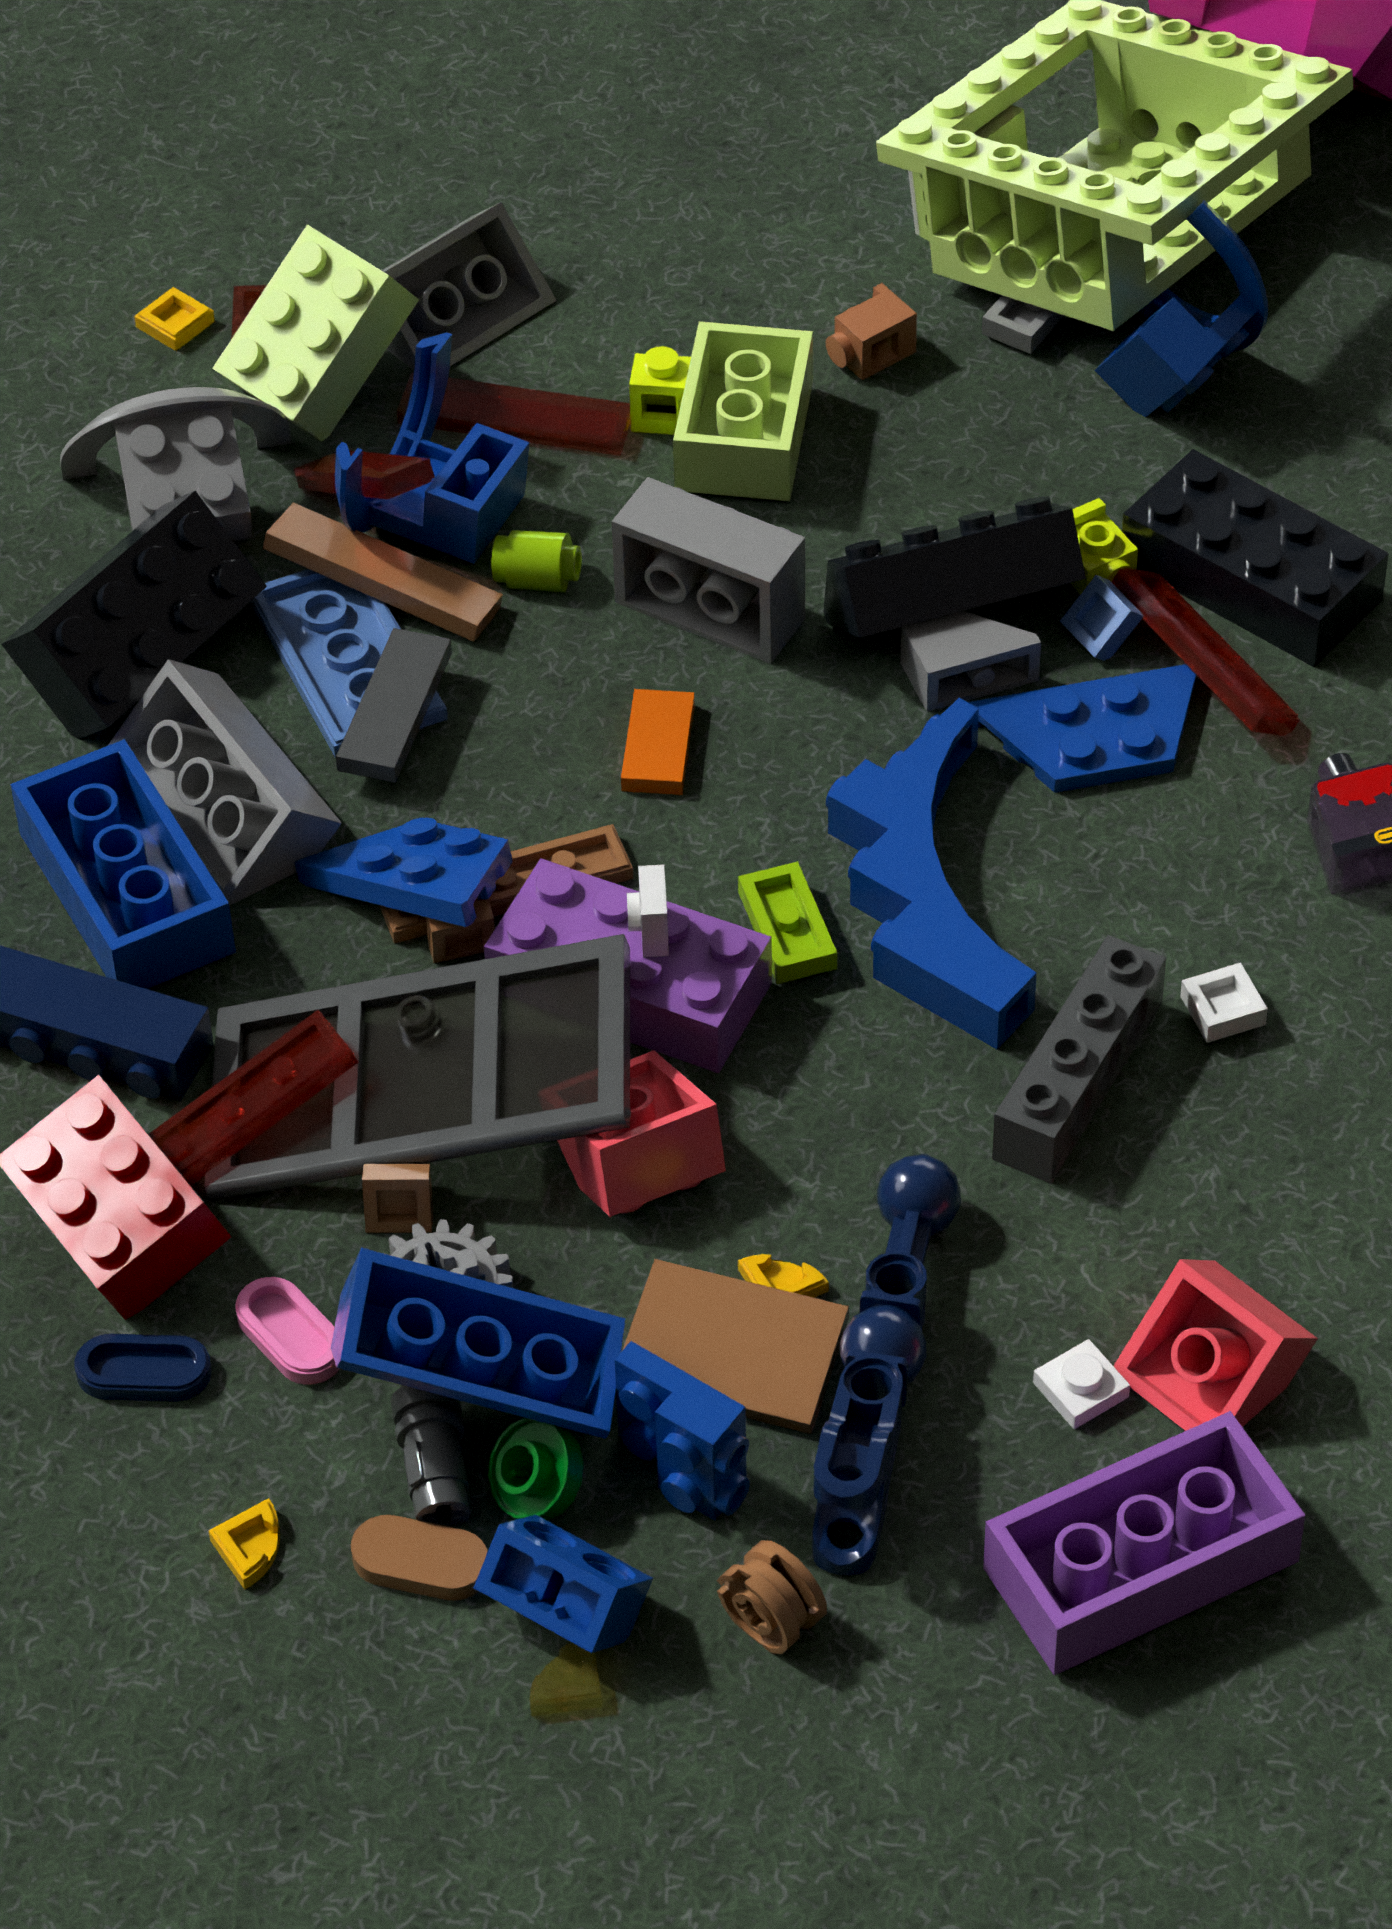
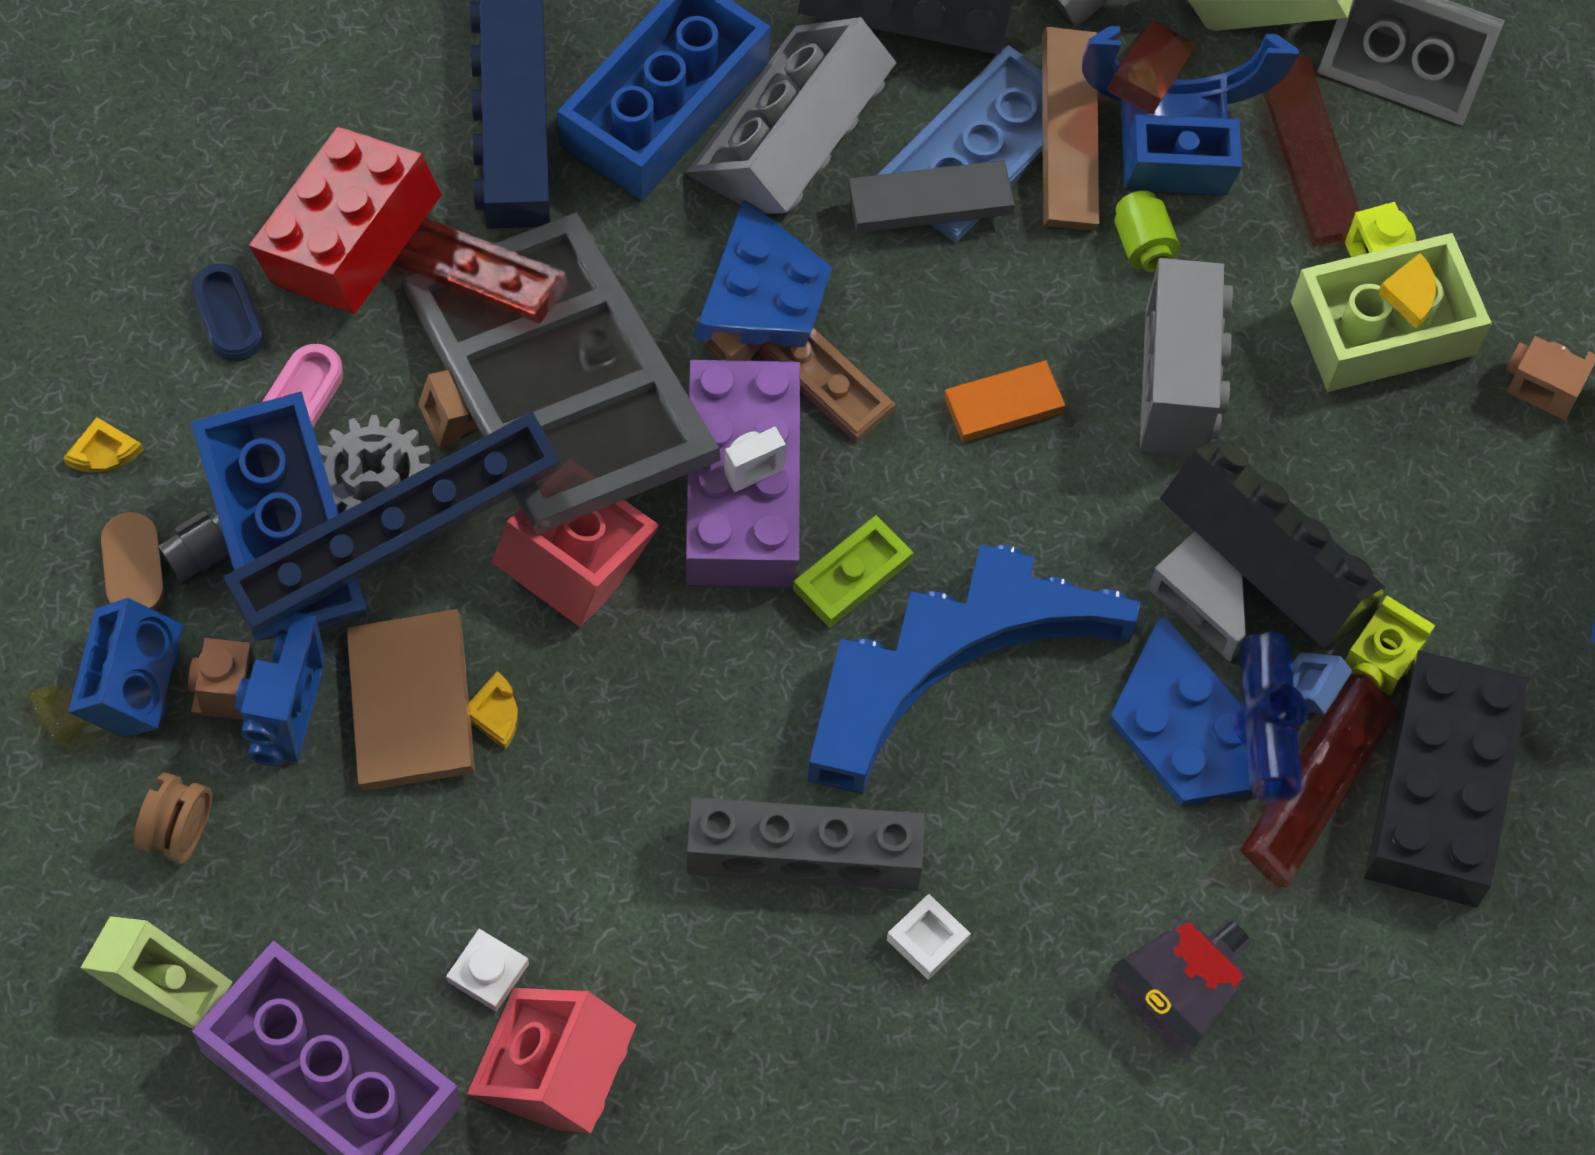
camera: 60 degrees right, 15 degrees up
(535, 1469) = (217, 615): green plate -> none
(570, 1227) = (391, 523): none -> dark blue brick
(622, 1501) = (218, 675): none -> nougat brick
(751, 365) = (1411, 290): none -> yellow tile
(880, 1356) = (433, 806): dark blue piece -> none
(941, 1678) = (155, 971): none -> yellowish green slope
(1133, 647) = (1270, 717): none -> clear blue piece

